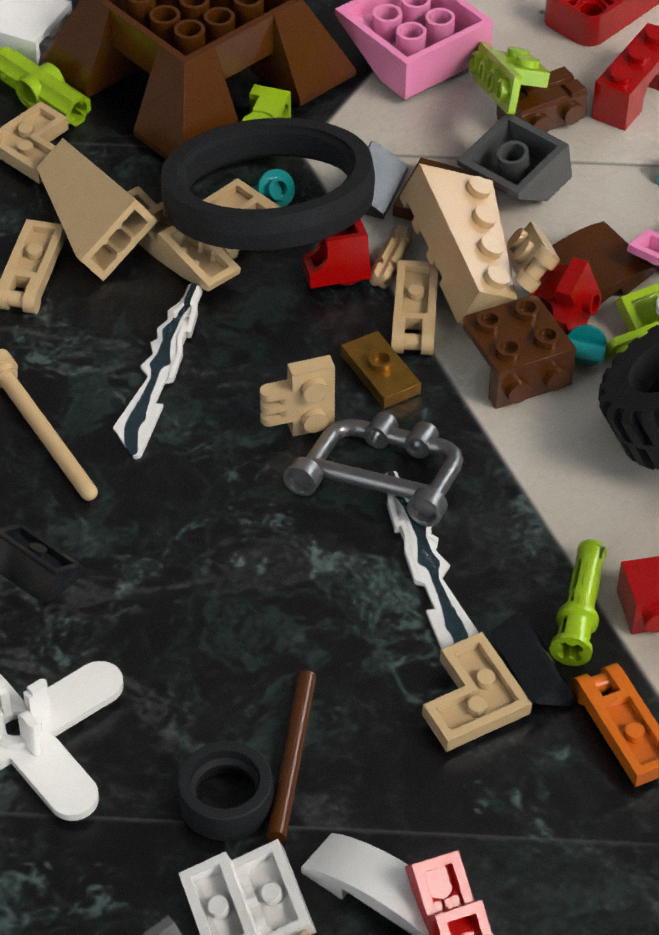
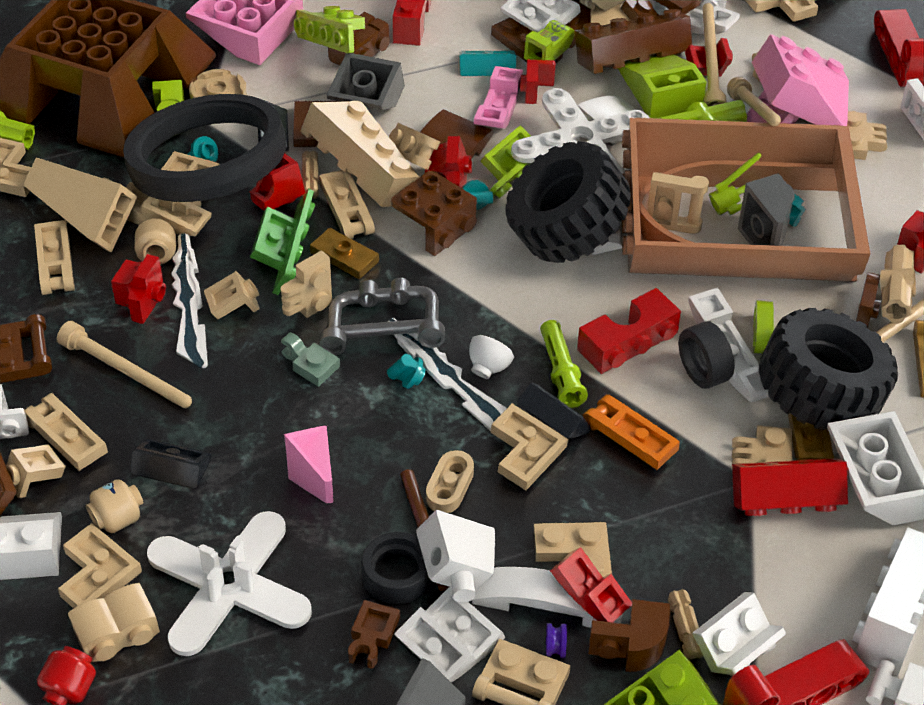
camera: 25 degrees left, 0 degrees up
(106, 334) = (139, 287): none -> red brick
(153, 856) = (372, 628): none -> reddish brown plate
(155, 283) = (156, 239): none -> tan head
(193, 616) = (310, 461): none -> bright pink slope
(211, 376) = (230, 294): none -> tan bracket
(264, 495) = (312, 362): none -> sand green plate
(303, 800) = (457, 553): none -> white torso
(308, 319) = (280, 238): none -> bright green bracket
(340, 109) = (217, 82): none -> tan tile
(349, 708) = (447, 484): none -> tan plate
(375, 544) = (407, 370): none -> teal plate
(485, 847) = (558, 540): none -> tan plate
(487, 561) = (488, 356): none -> white brick

